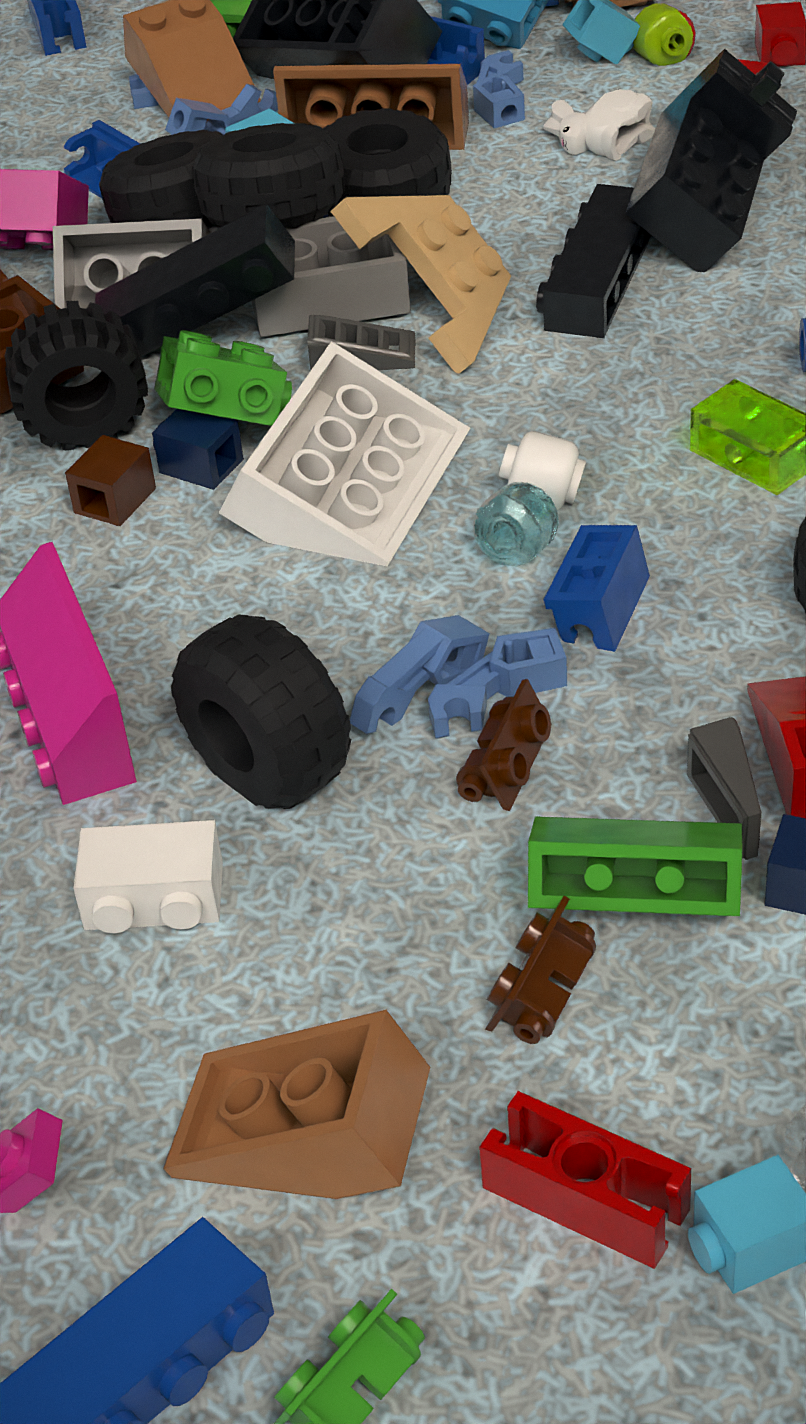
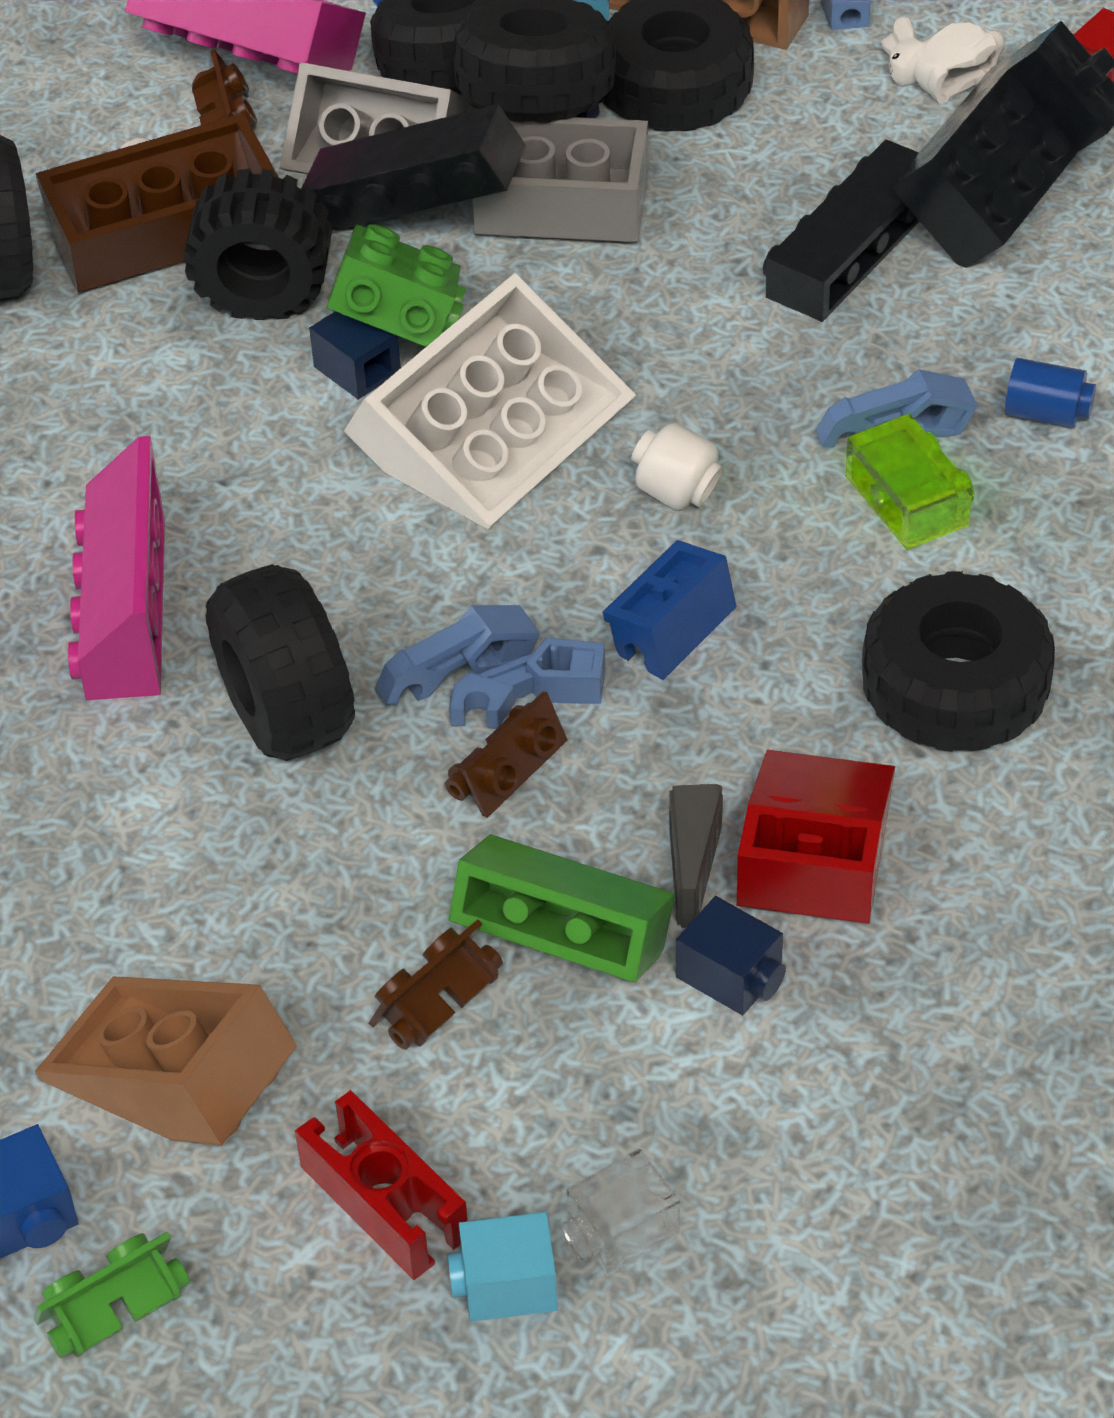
camera: 15 degrees right, 5 degrees up
(110, 480) = (257, 367): reddish brown brick -> none
(148, 876) = (127, 795): white brick -> none
(363, 340) = (539, 252): dark grey slope -> none
(447, 256) = (687, 193): tan wing -> none
(515, 524) = (623, 518): clear light blue head -> none
(734, 361) = (934, 400): none -> medium blue piece

